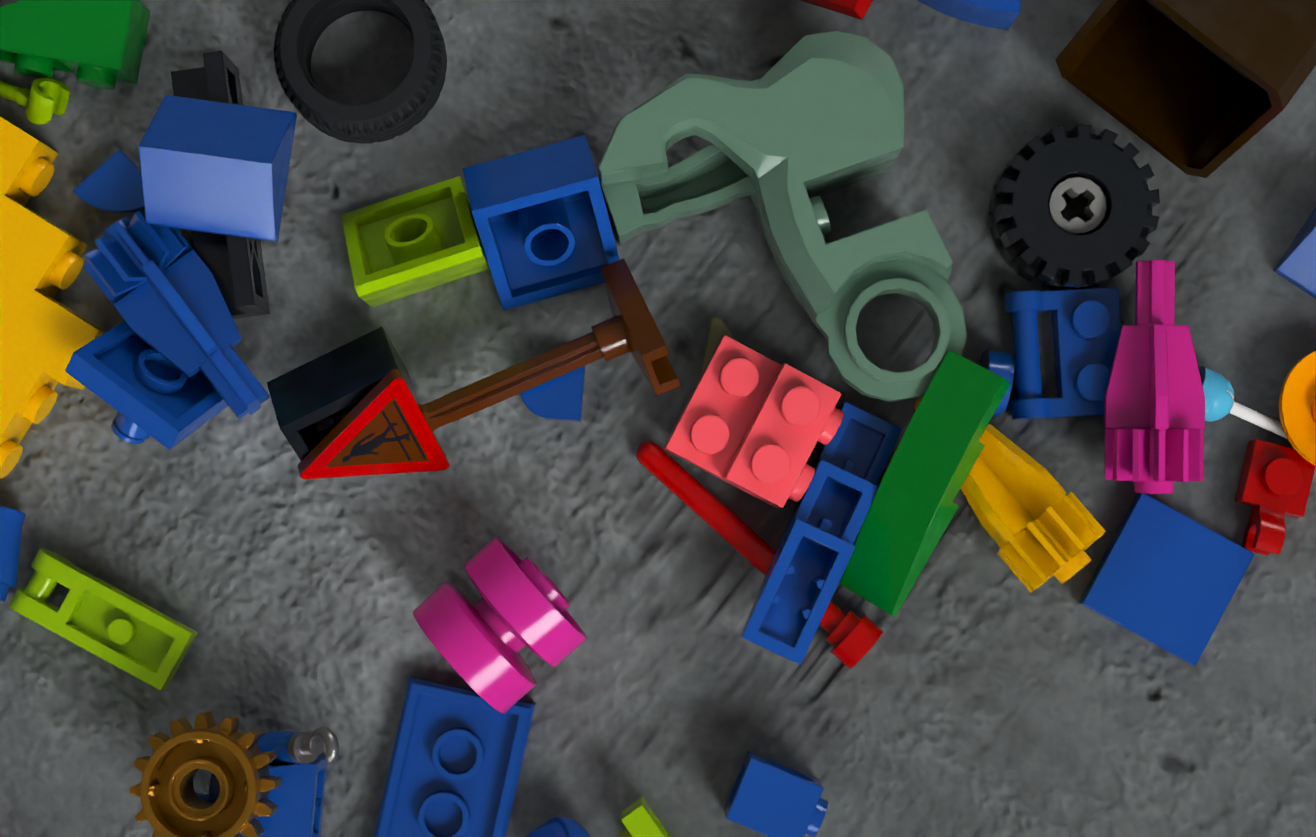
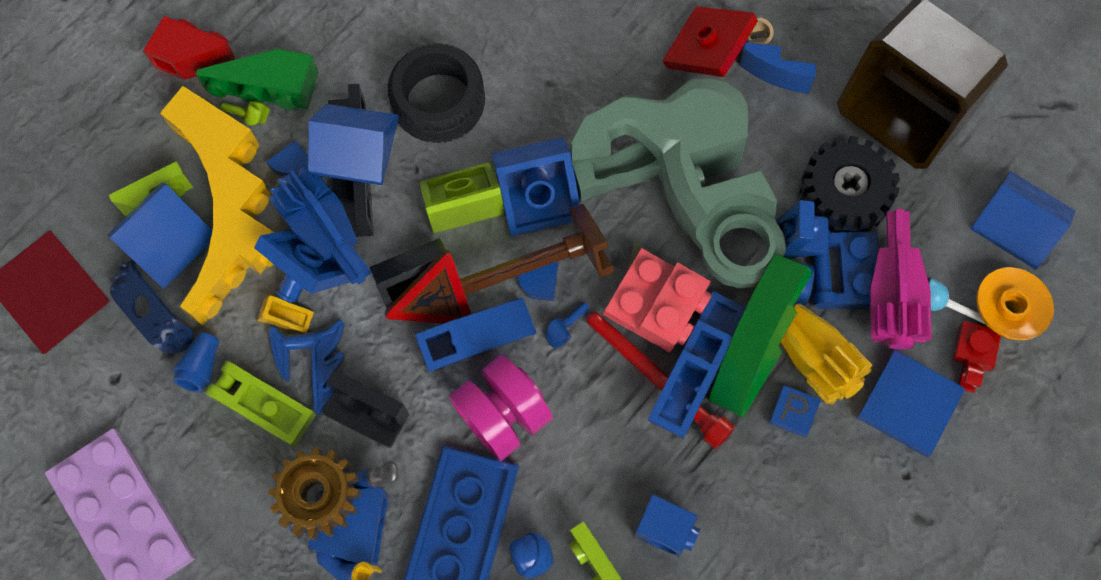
camera: 10 degrees right, 15 degrees down
(131, 463) = (284, 315): none -> yellow piece
(198, 515) = (322, 346): none -> blue piece
(276, 628) = (365, 410): none -> black bracket
(449, 496) = (474, 334): none -> blue slope
(588, 478) = (557, 329): none -> blue hand
(978, 599) = (794, 411): none -> blue tile
(997, 298) = (804, 231): none -> blue slope

